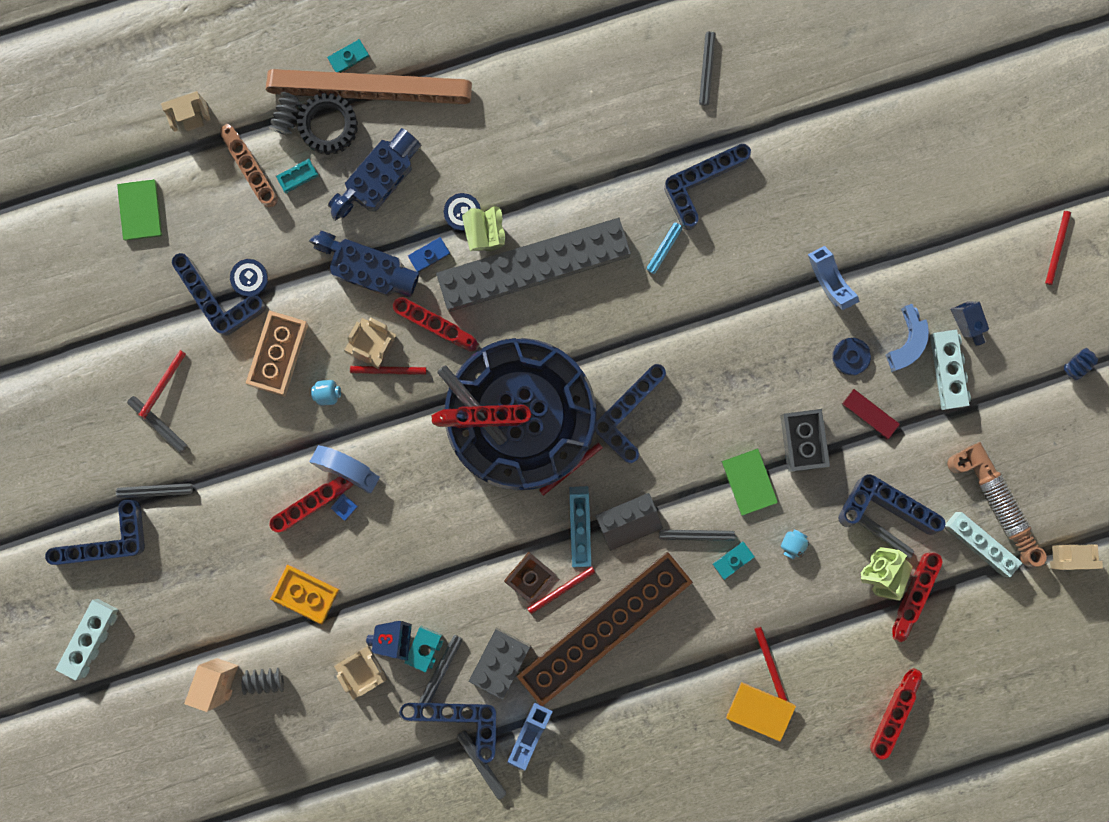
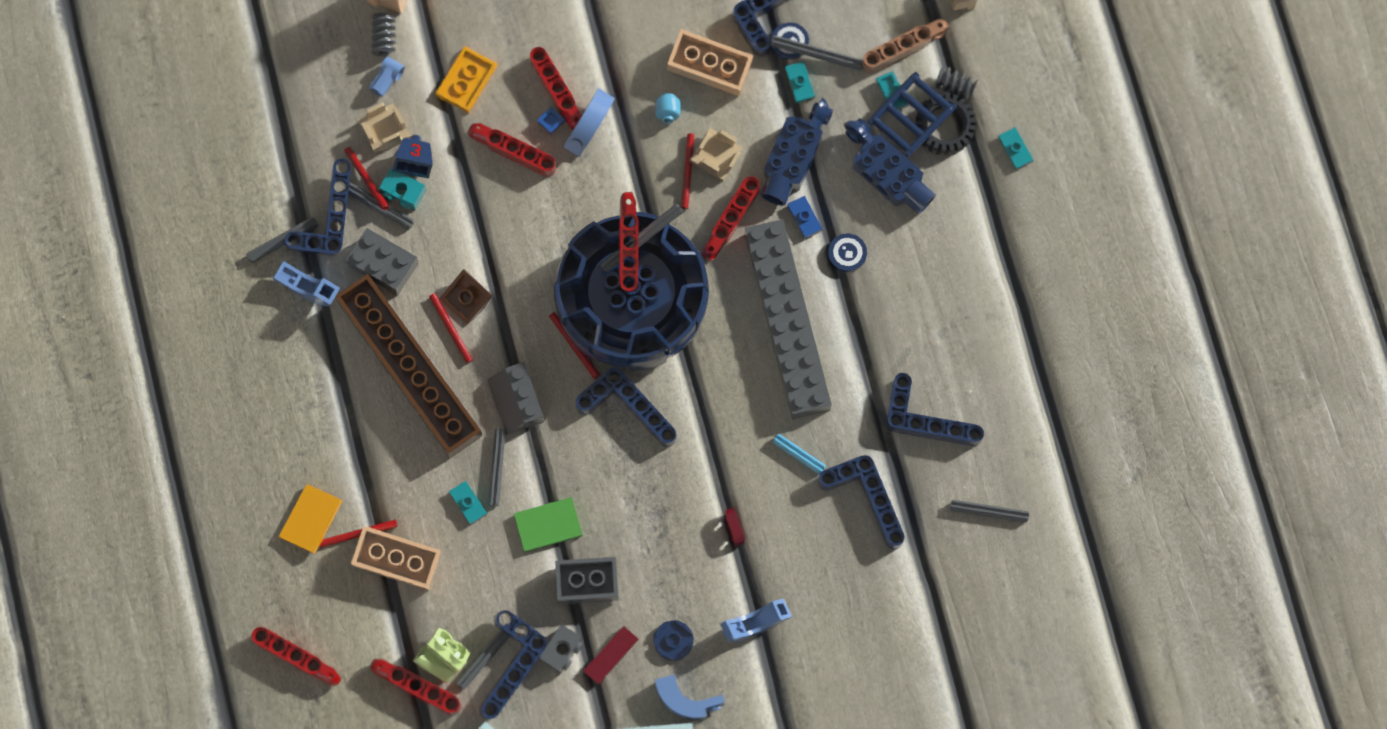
camera: 85 degrees right, 10 degrees down
(260, 251) = (816, 52): none -> dark grey axle
(291, 266) = (800, 82): none -> teal plate
(299, 165) = (922, 135): none -> dark blue bar
(302, 672) = (389, 72): none -> medium blue piece
(366, 571) = (485, 134): none -> red piece
(369, 86) = (982, 167): nougat beam -> none
(414, 686) = (366, 178): none -> red piece
(484, 229) = (825, 268): yellowish green piece -> none
(580, 526) = (515, 349): medium azure slope -> none
(628, 130) = (926, 421): none -> dark blue beam
(740, 305) = (734, 526): none -> dark red beam
(794, 544) = (479, 565): medium azure head -> none
(796, 624) = (396, 558): none -> light nougat brick
(859, 456) = (565, 637): none -> dark grey brick

